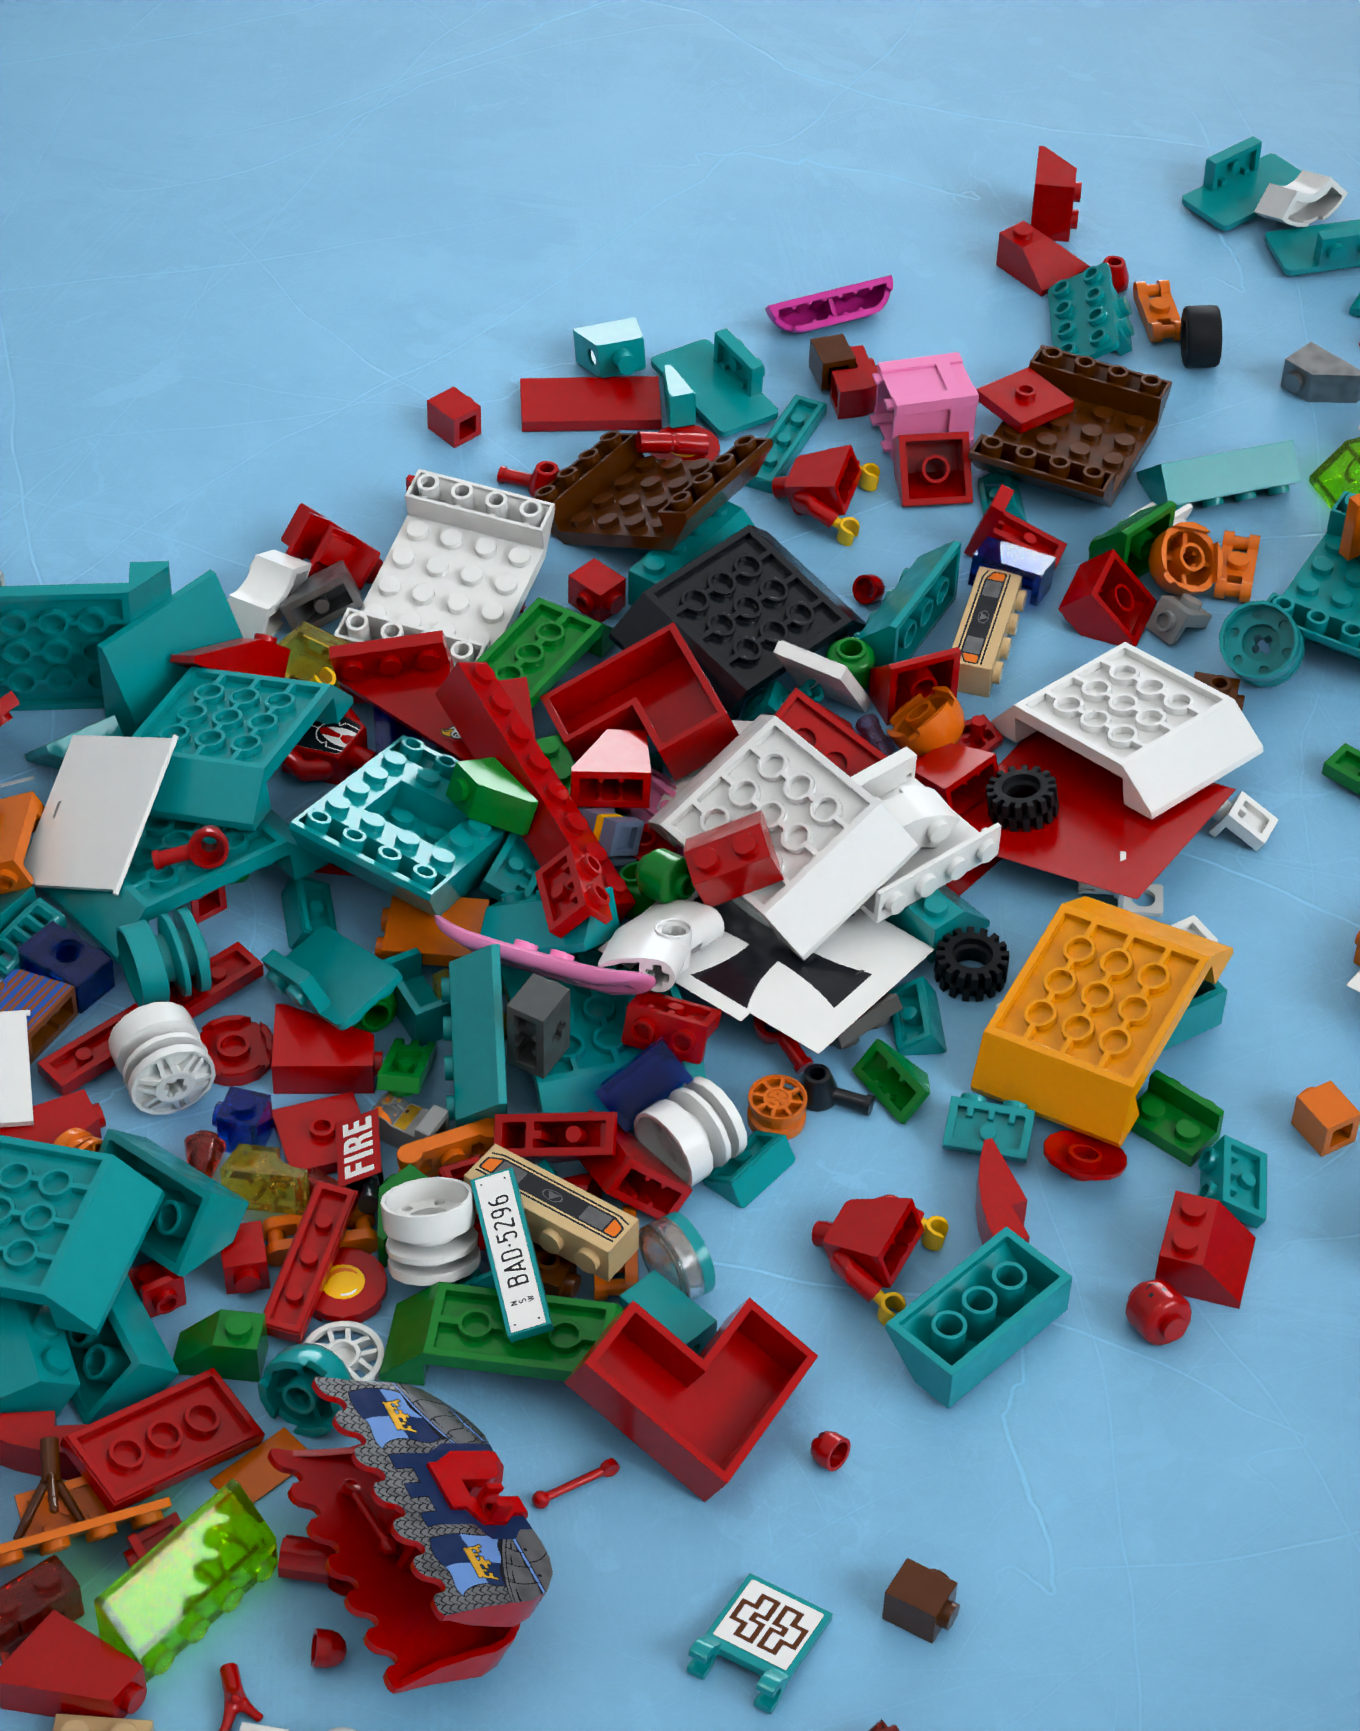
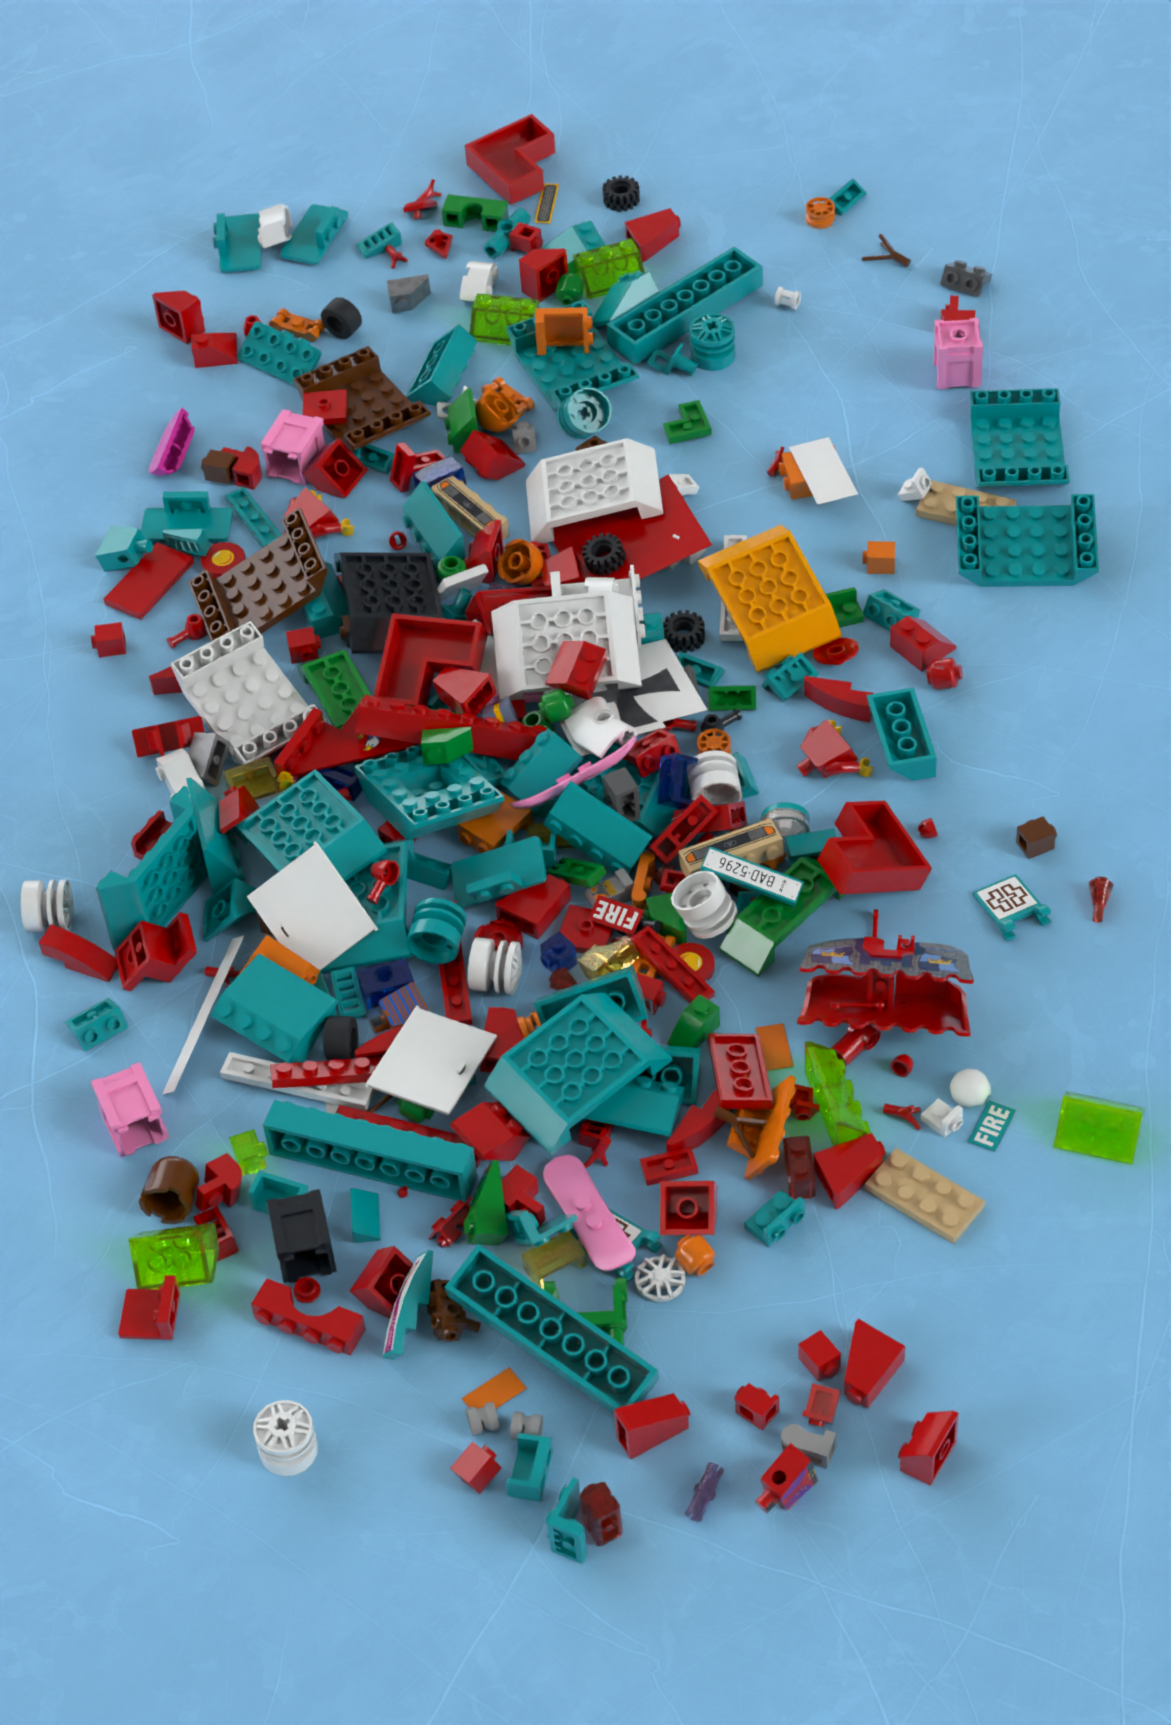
camera: 50 degrees left, 5 degrees up
(288, 1390) = (752, 1001): teal cylinder -> none
(350, 1351) = (733, 984): white wheel -> none
(572, 891) = (549, 741): red bracket -> none
(677, 443) = (224, 559): red piece -> none

